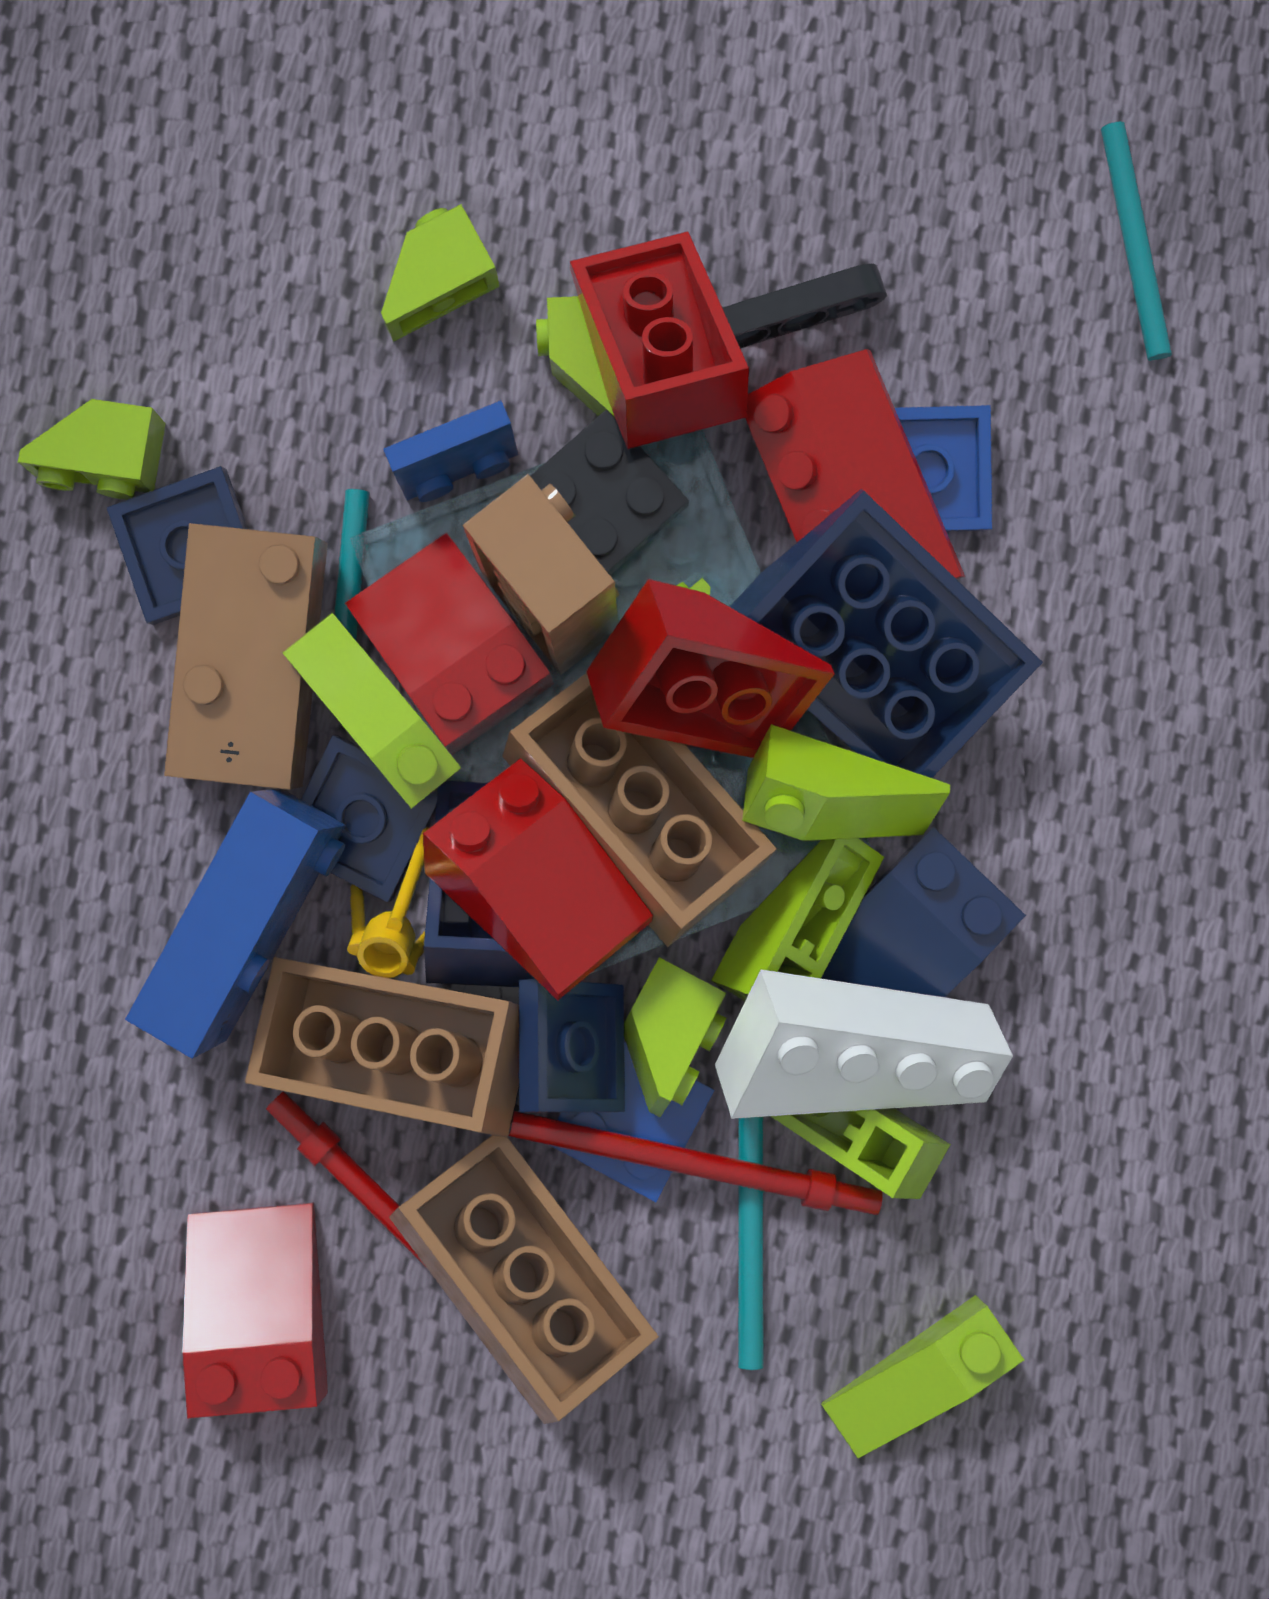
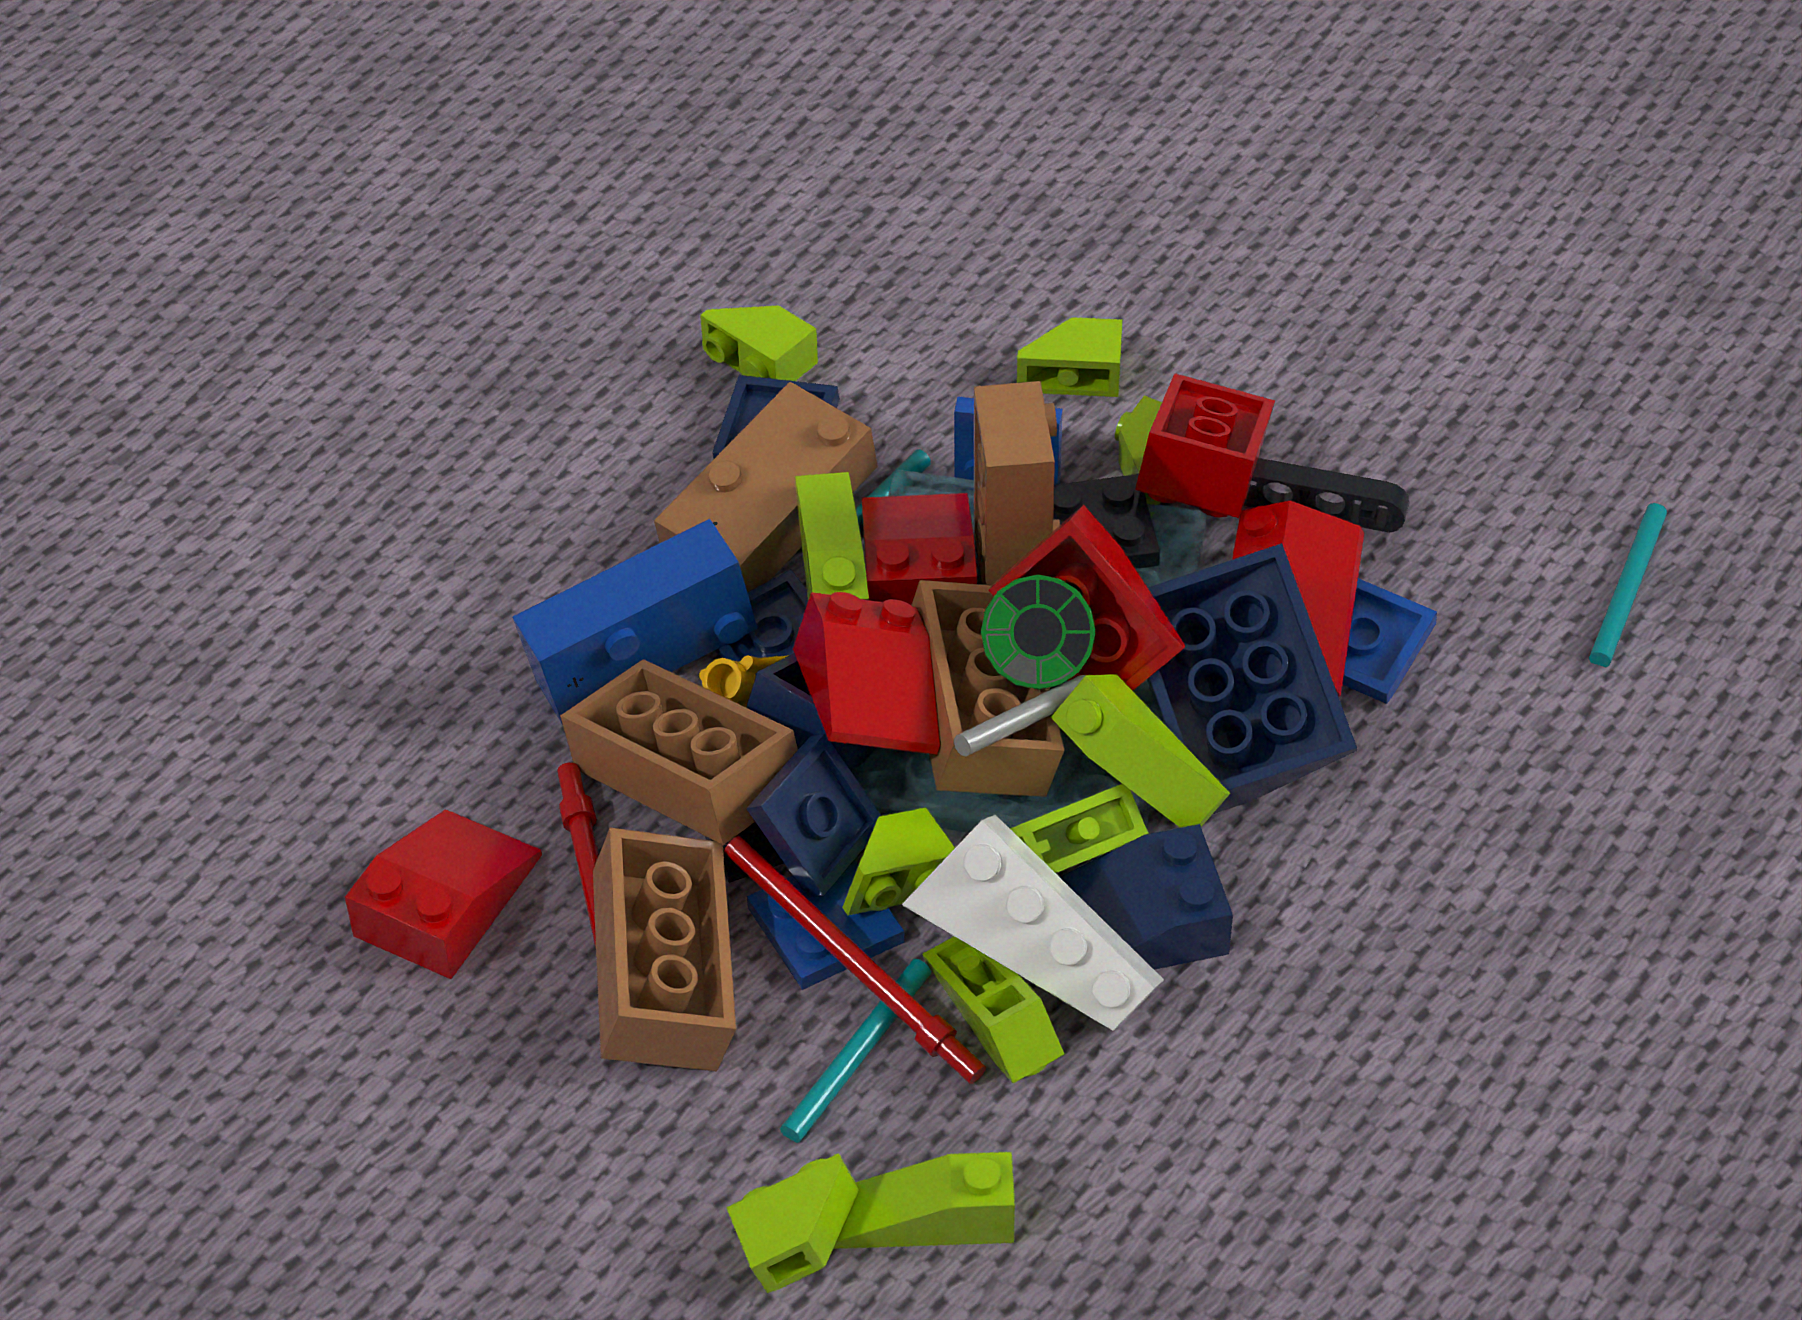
camera: 30 degrees right, 35 degrees down
(685, 747) = (1038, 631): none -> tile
(721, 844) = (1014, 719): none -> light grey bar
(828, 1485) = (795, 1222): none -> lime slope

